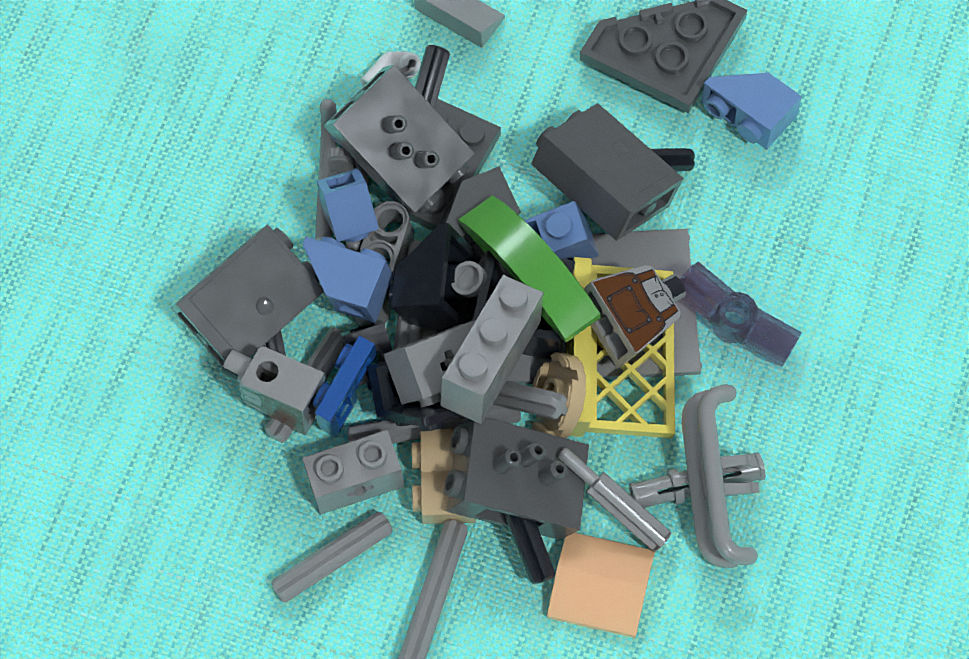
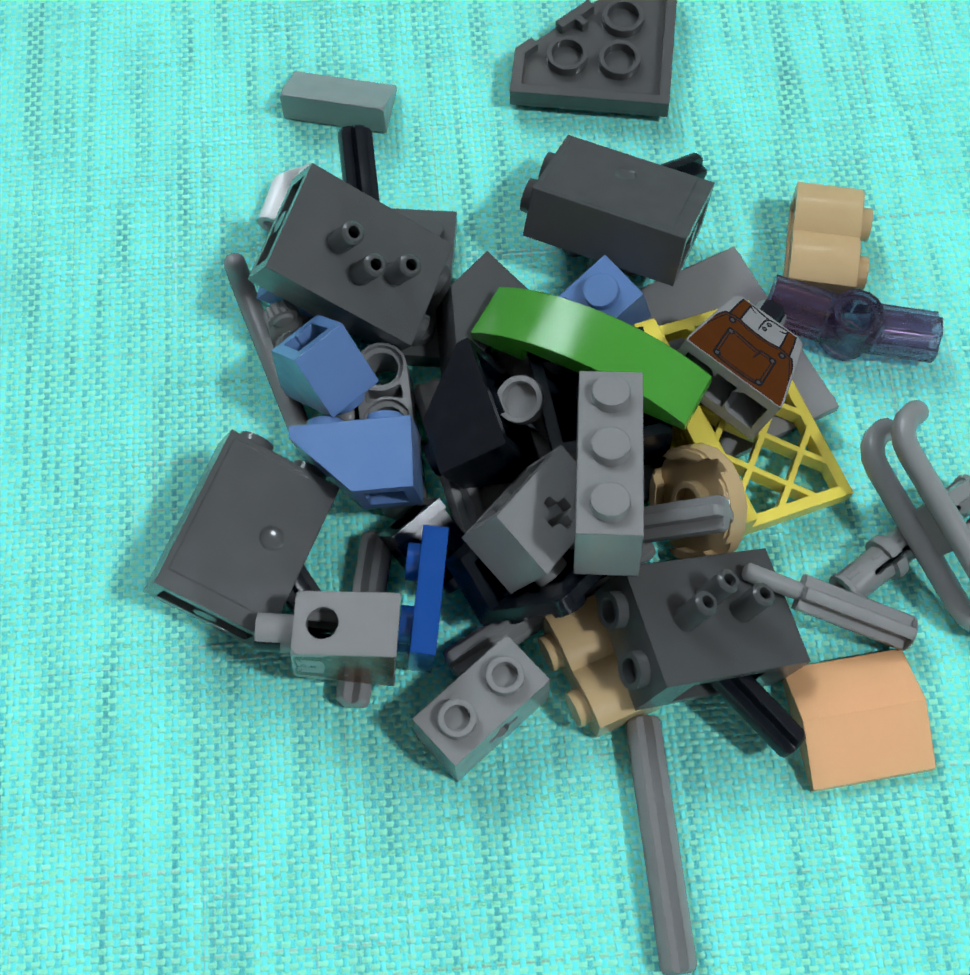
camera: 25 degrees left, 0 degrees up
(331, 556) = (501, 834): light grey axle -> none
(751, 249) = (827, 236): none -> tan brick
(753, 104) = (737, 77): medium blue slope -> none

